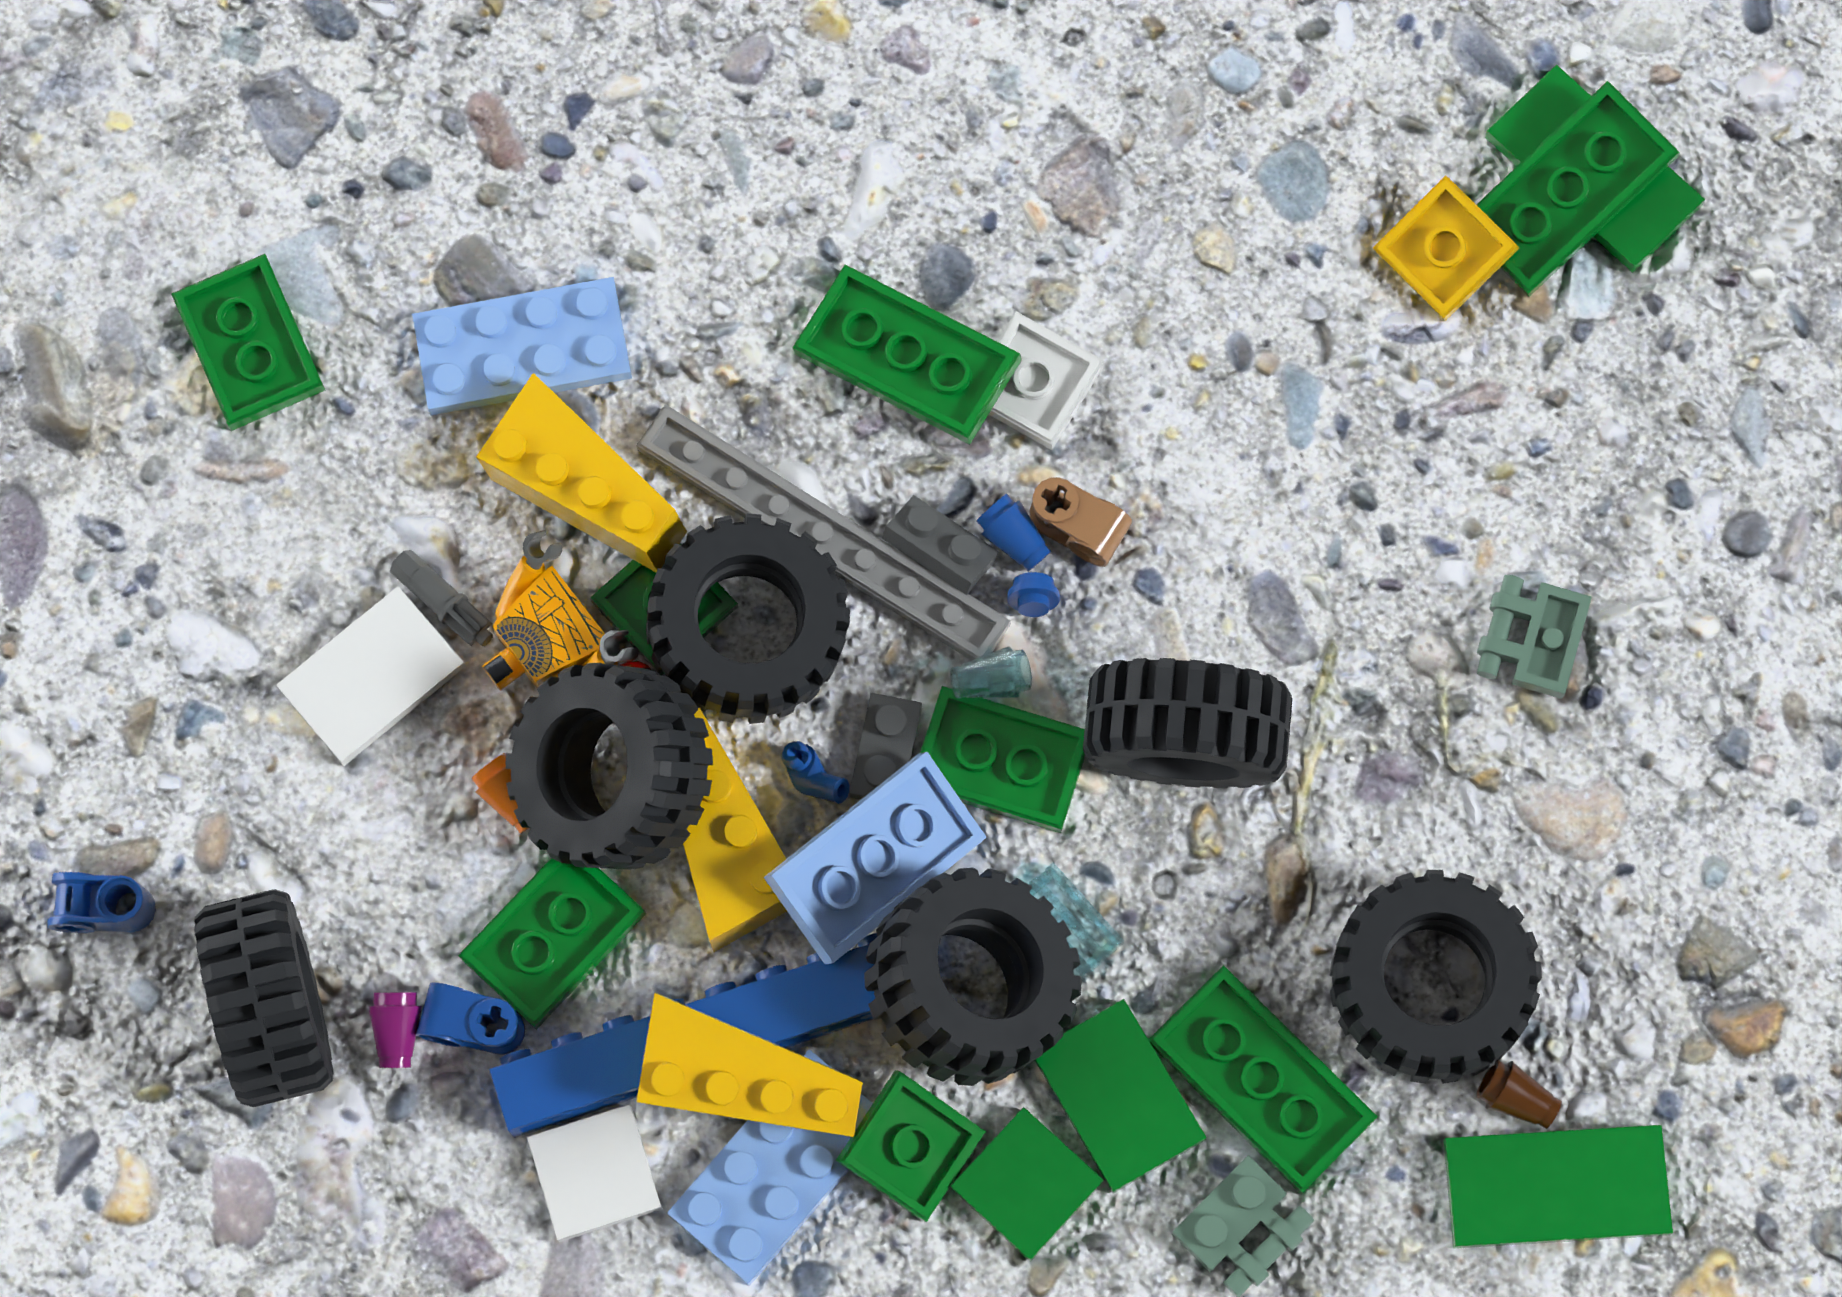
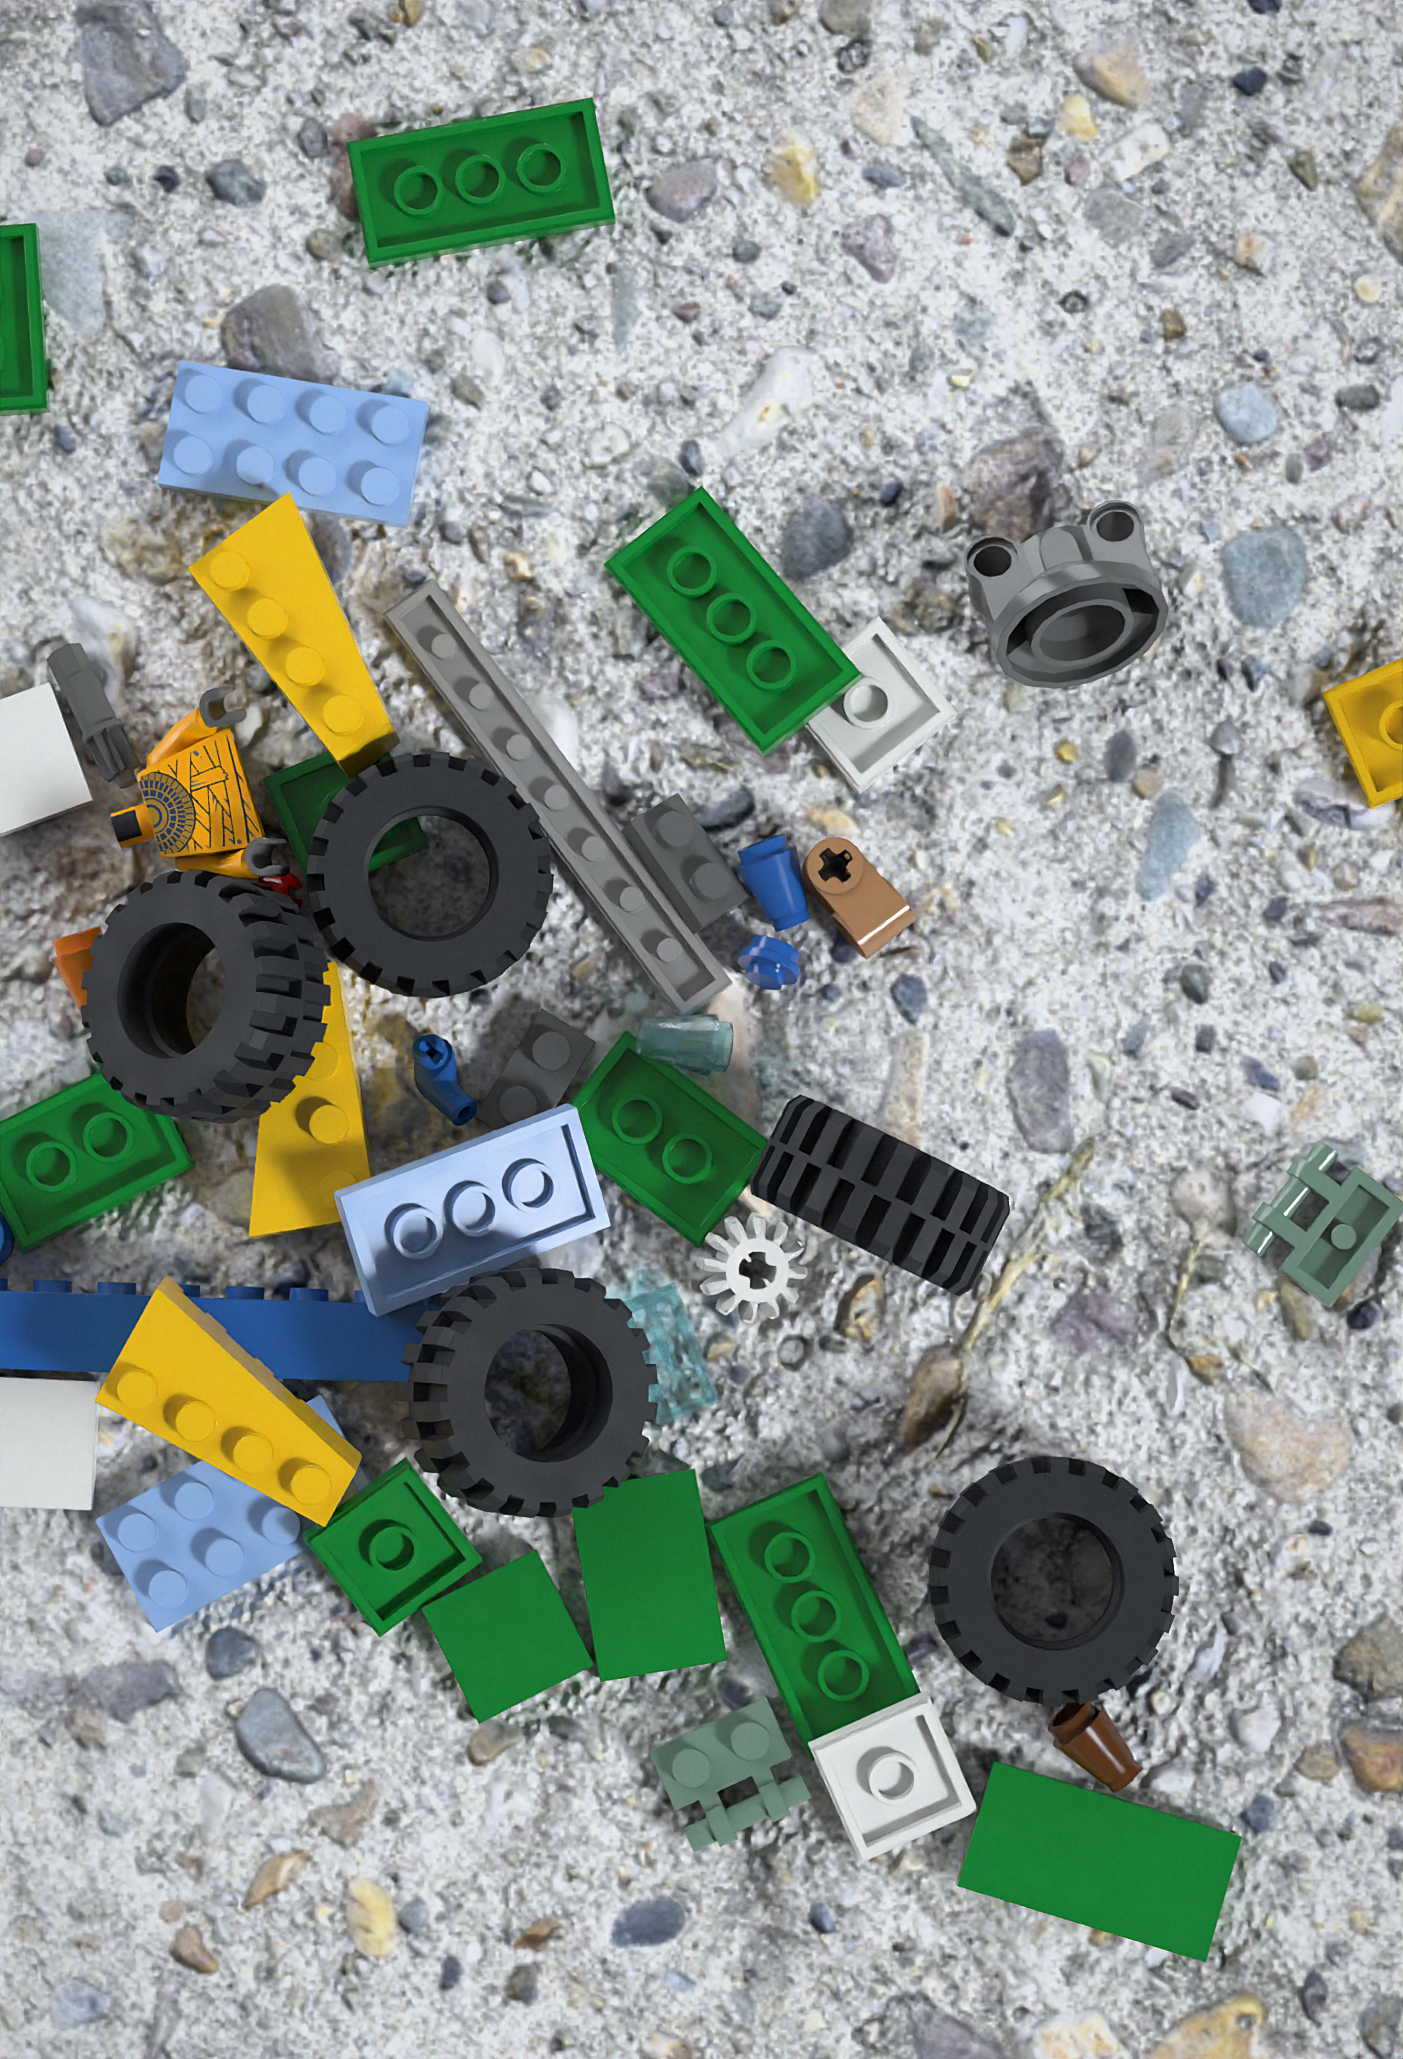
camera: 15 degrees right, 10 degrees up
(593, 107) = (481, 183): none -> green tile
(1103, 844) = (737, 1287): none -> white gear
(1156, 243) = (1069, 598): none -> dark grey piece
(1371, 1179) = (893, 1776): none -> white tile

